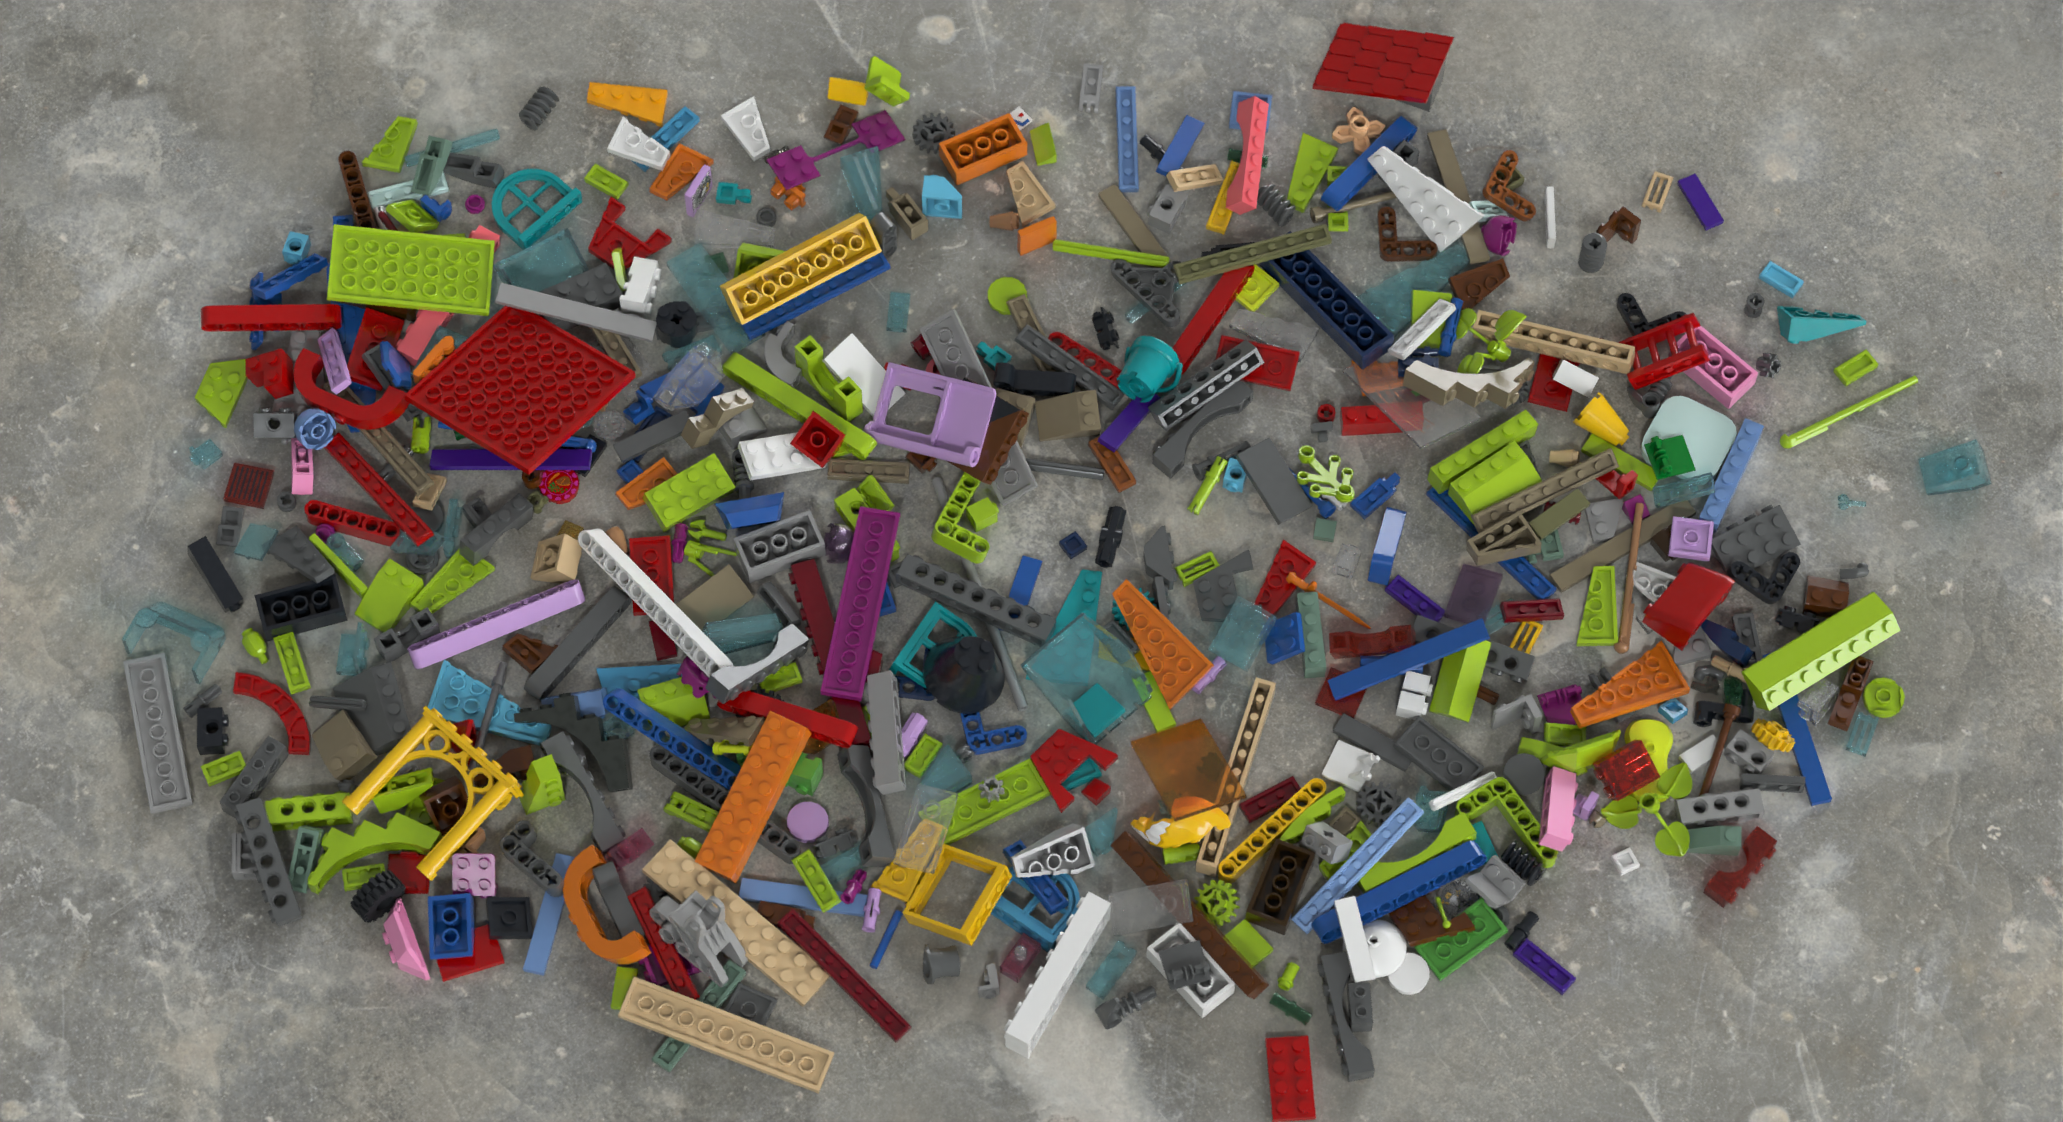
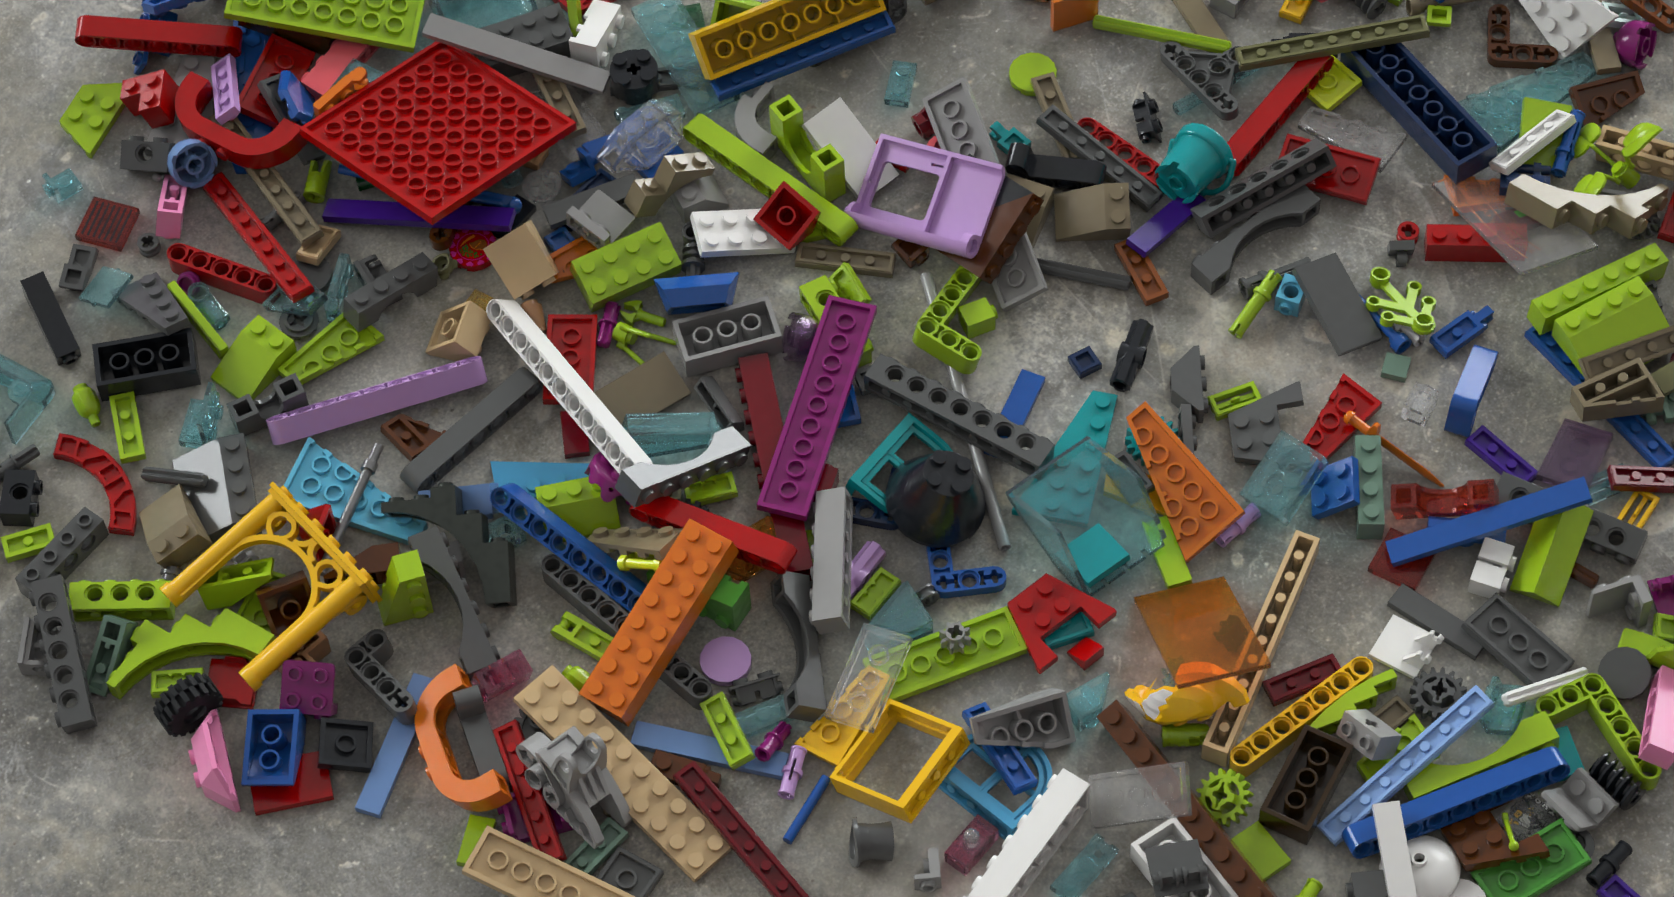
camera: 10 degrees right, 5 degrees down
(602, 494) = (522, 261): none -> tan slope
(663, 454) = (599, 220): none -> light grey bracket

